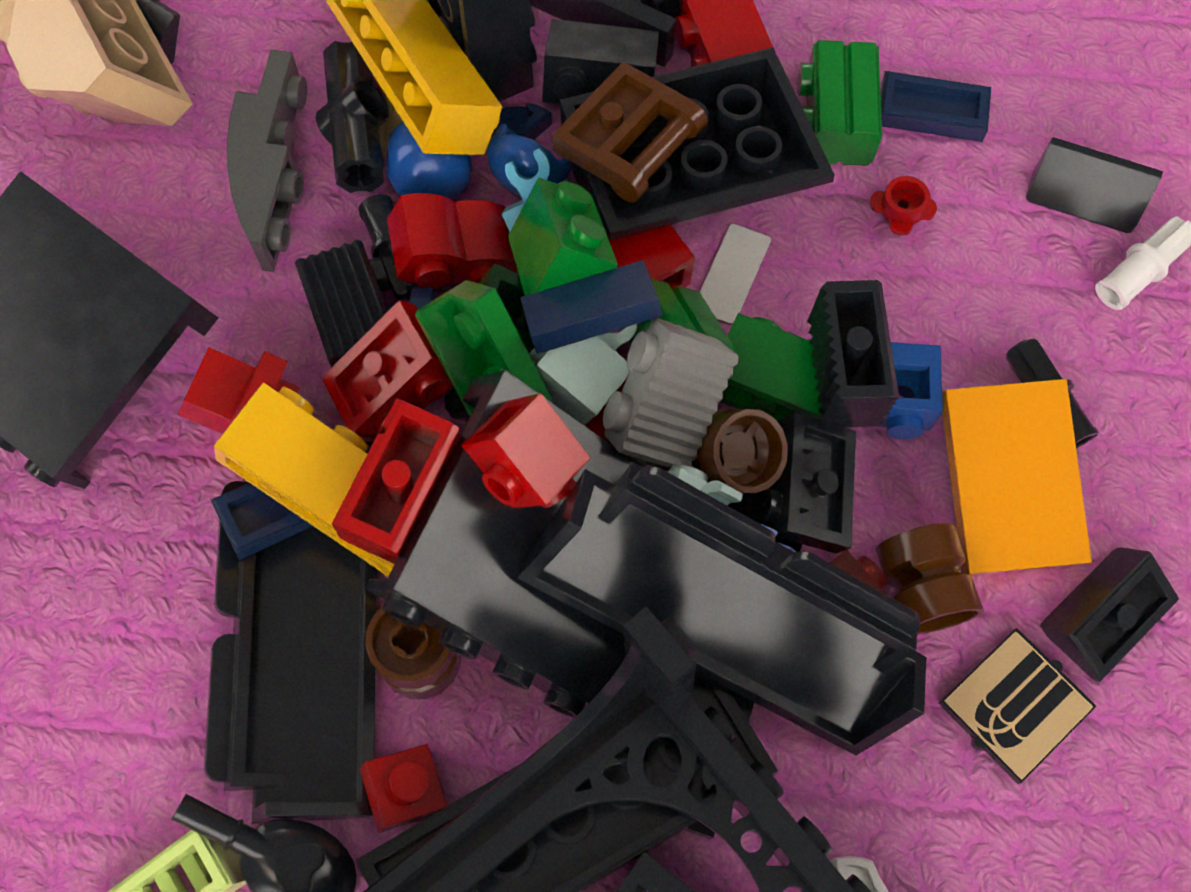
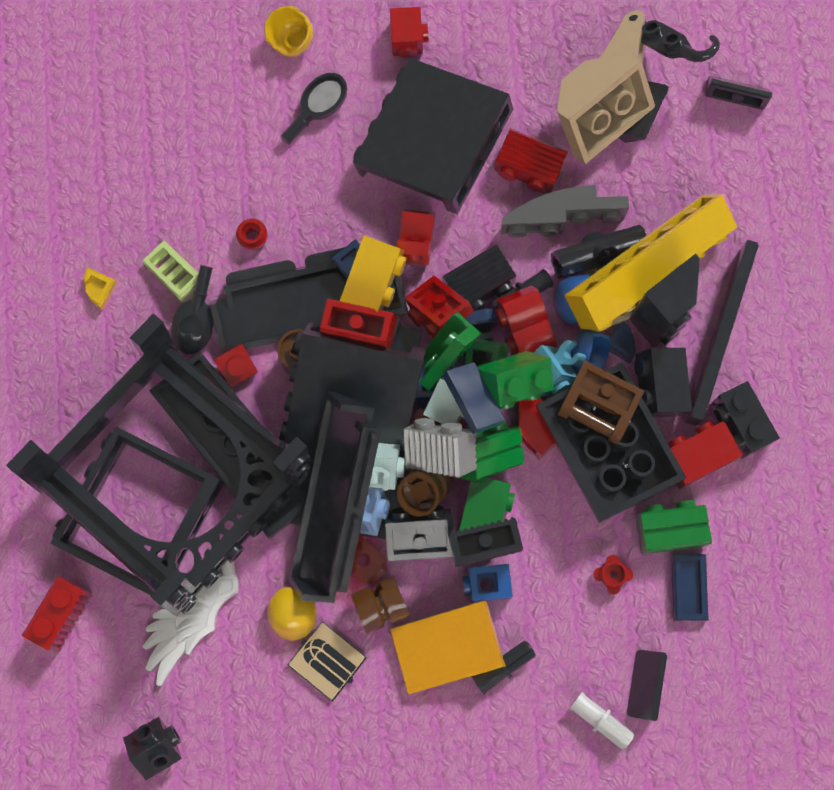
camera: 80 degrees right, 10 degrees up
(120, 703) = (248, 226): none -> red plate
(157, 191) = (530, 161): none -> red brick
(526, 453) = (378, 379): brick -> none
(734, 271) = (549, 482): white sticker -> none
(926, 759) = (290, 616): none -> yellow hair
(1110, 611) = (385, 708): black slope -> none

